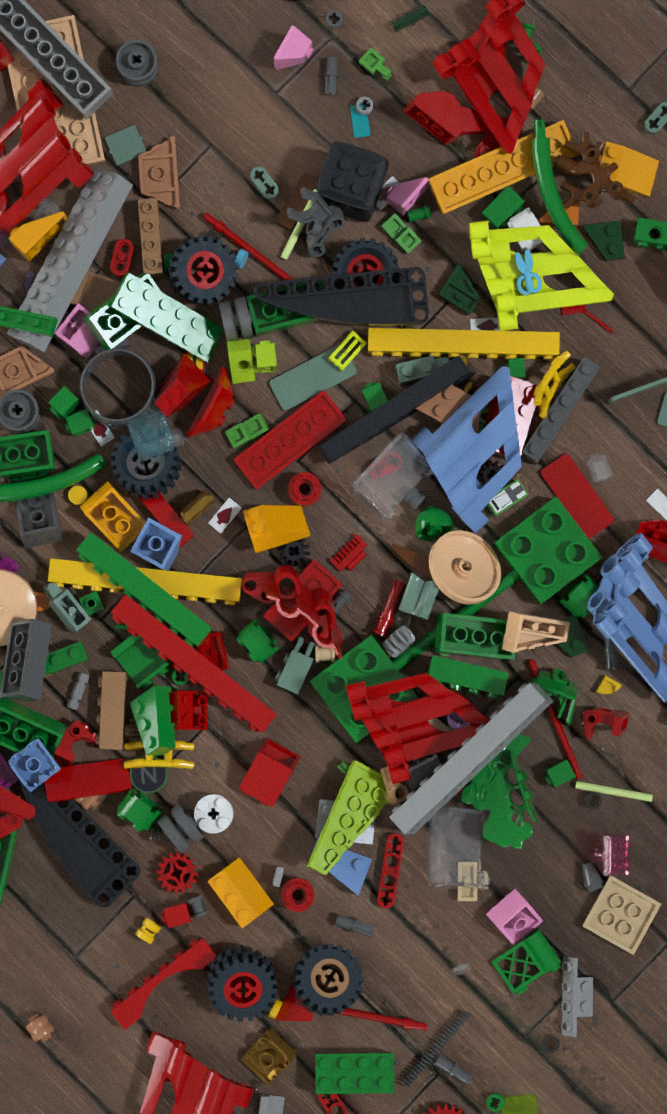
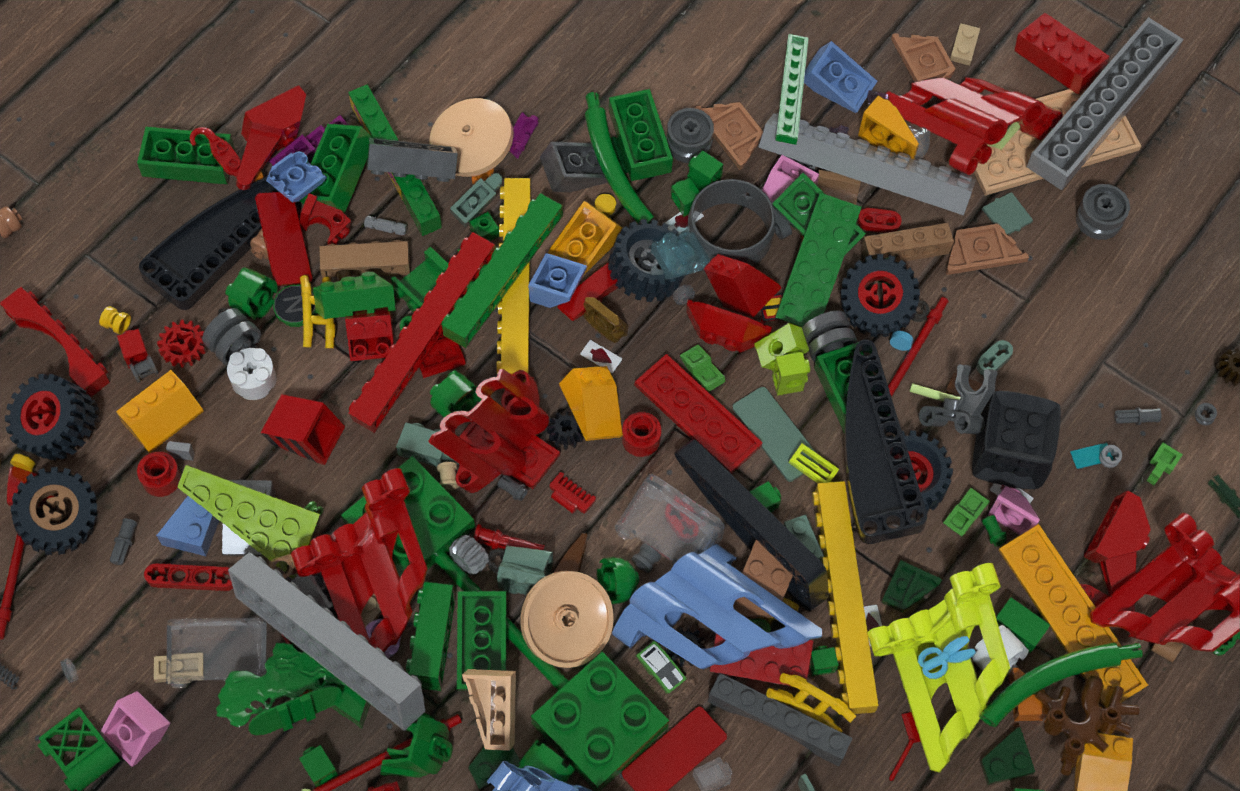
camera: 80 degrees right, 20 degrees down
(293, 50) = (1158, 366): bright pink slope -> none

